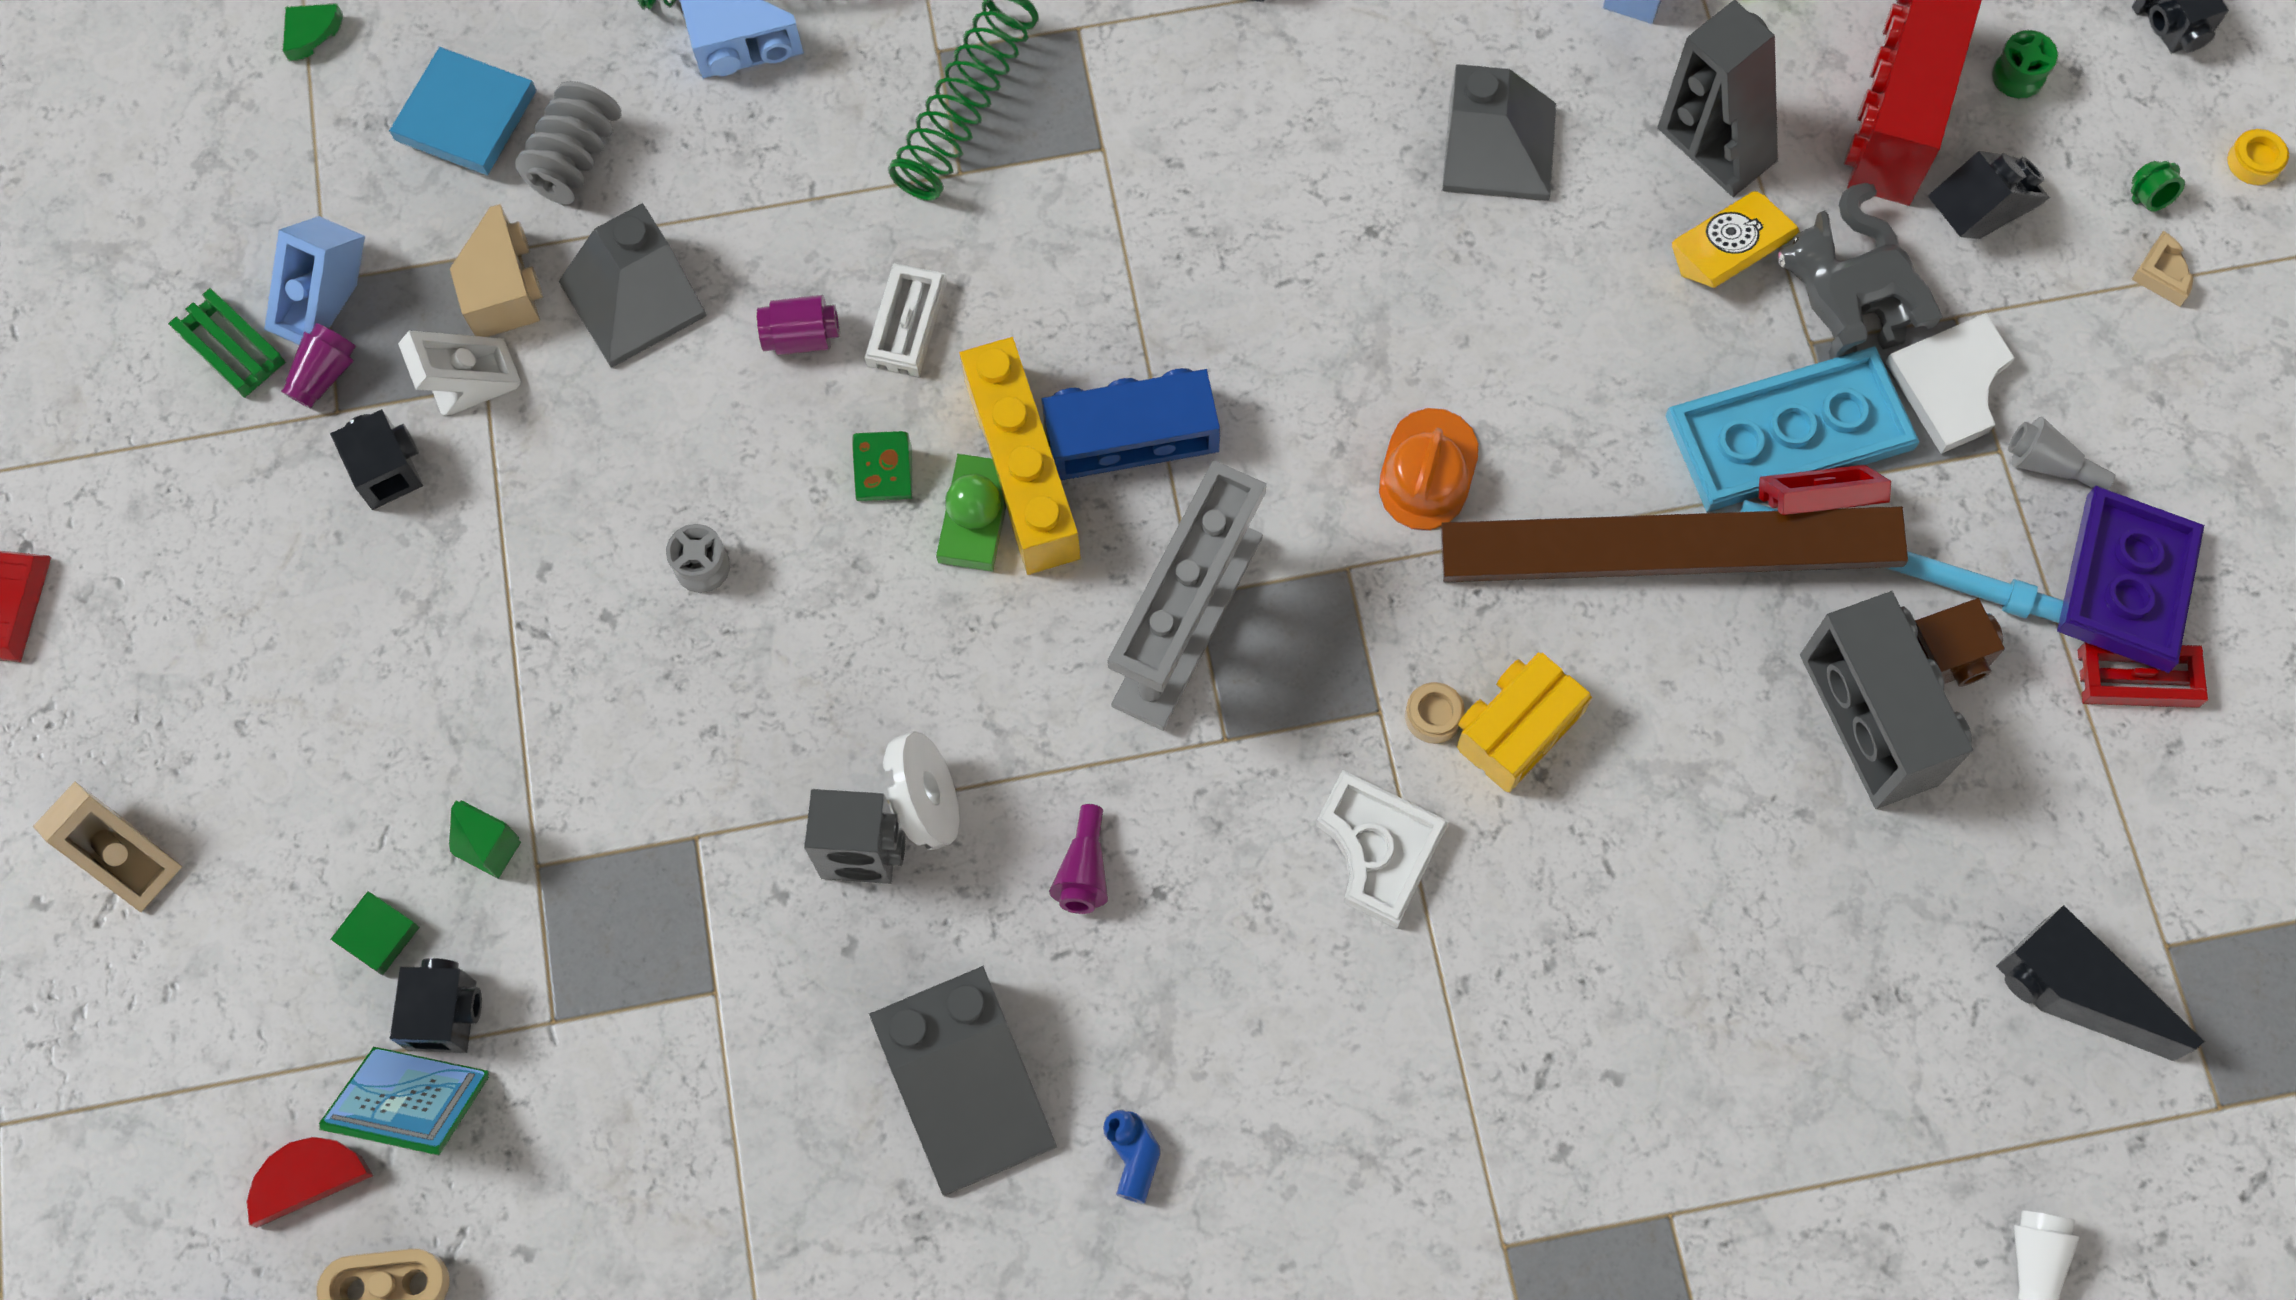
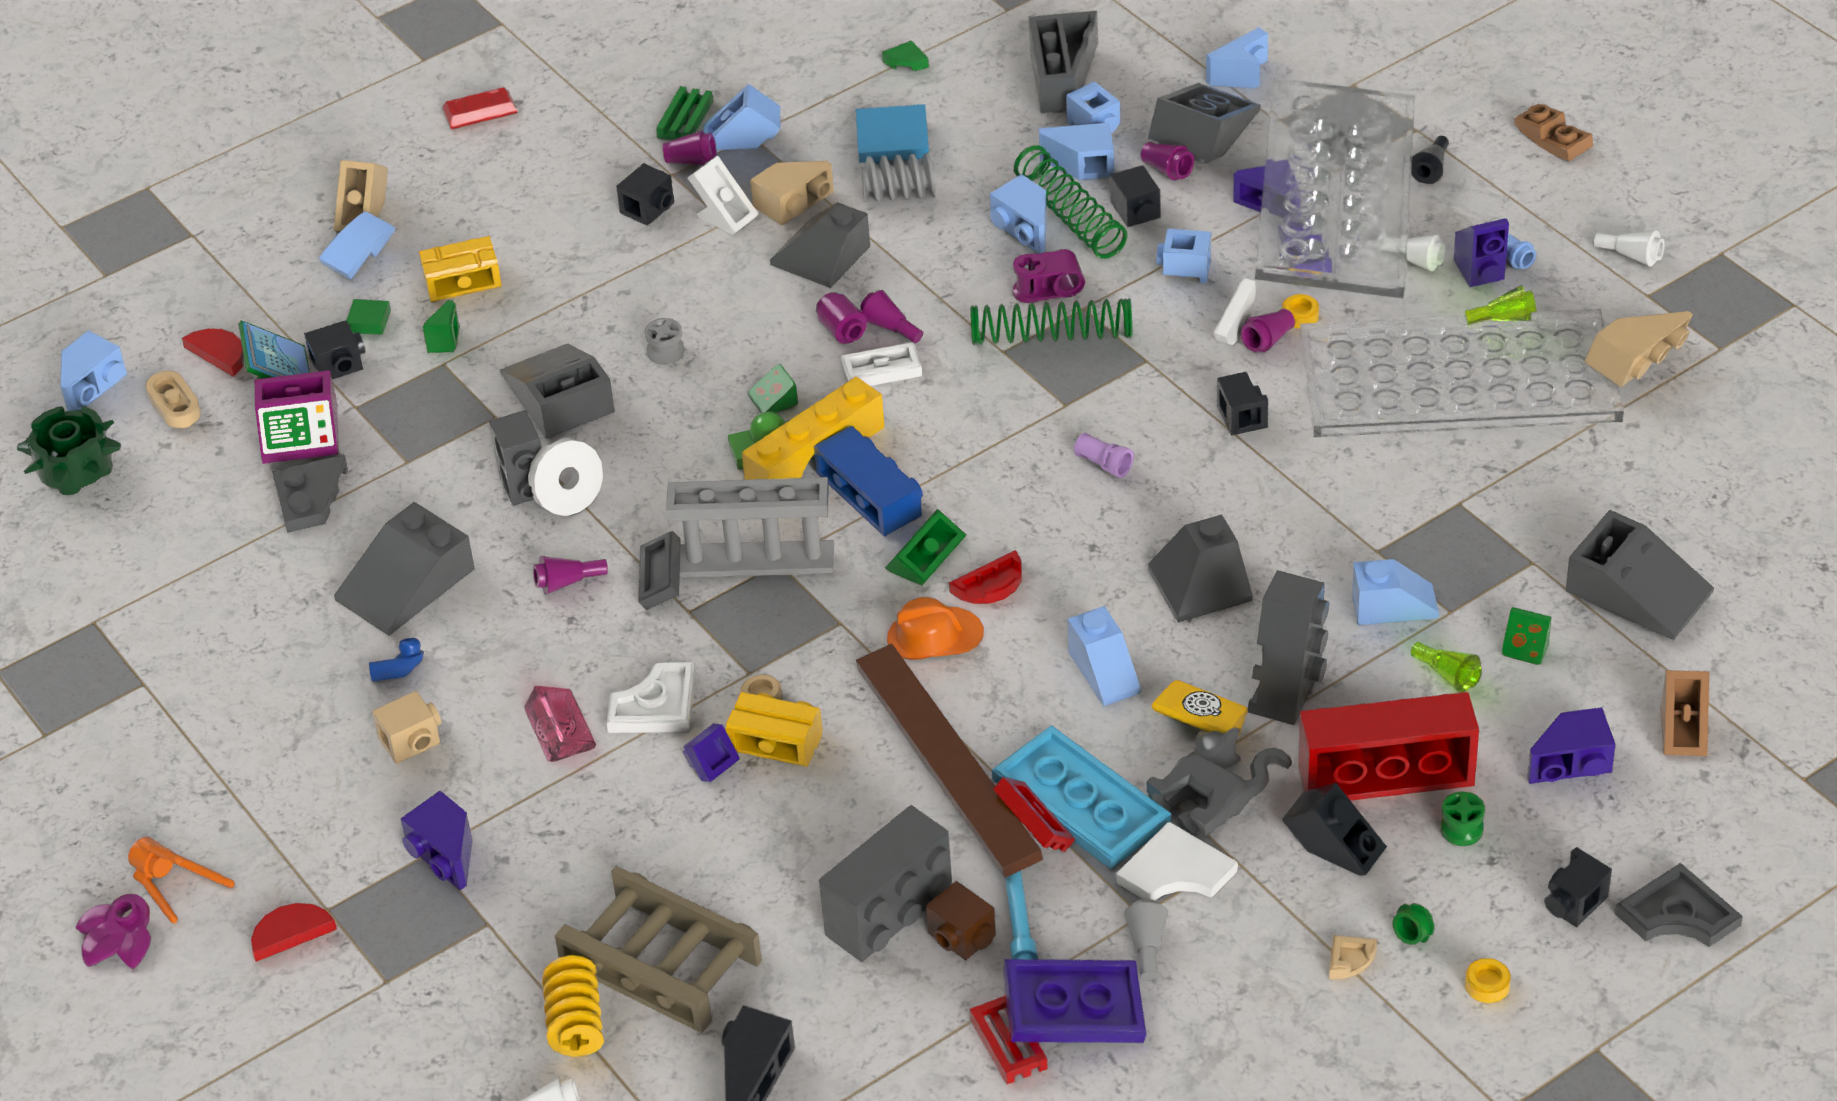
camera: 65 degrees right, 25 degrees down
(210, 889) = (357, 241): none -> light blue slope
(366, 765) = (460, 268): none -> yellow brick
(559, 1115) = (296, 416): none -> slope
(703, 1155) = (308, 491): none -> dark grey wing
(706, 728) = (561, 389): none -> dark grey slope
(820, 271) = (884, 313): none -> magenta cone
(873, 60) = (1048, 274): none -> magenta piece
(1148, 744) = (659, 570): none -> dark grey tile
(1246, 139) = (1110, 457): none -> lavender pin
(1276, 415) = (926, 549): none -> green slope
(1282, 1186) = (407, 726): none -> tan brick
(1357, 985) = (558, 723): none -> clear pink slope
(1377, 365) = (990, 582): none -> red tile
(1516, 1215) = (441, 837): none -> dark purple slope
(1528, 817) = (711, 752): none -> dark purple tile
(1589, 301) = (1102, 655): none -> light blue slope
(1845, 1073) = (655, 984): none -> dark tan fence
(1906, 1161) = (572, 1006): none -> yellow piece

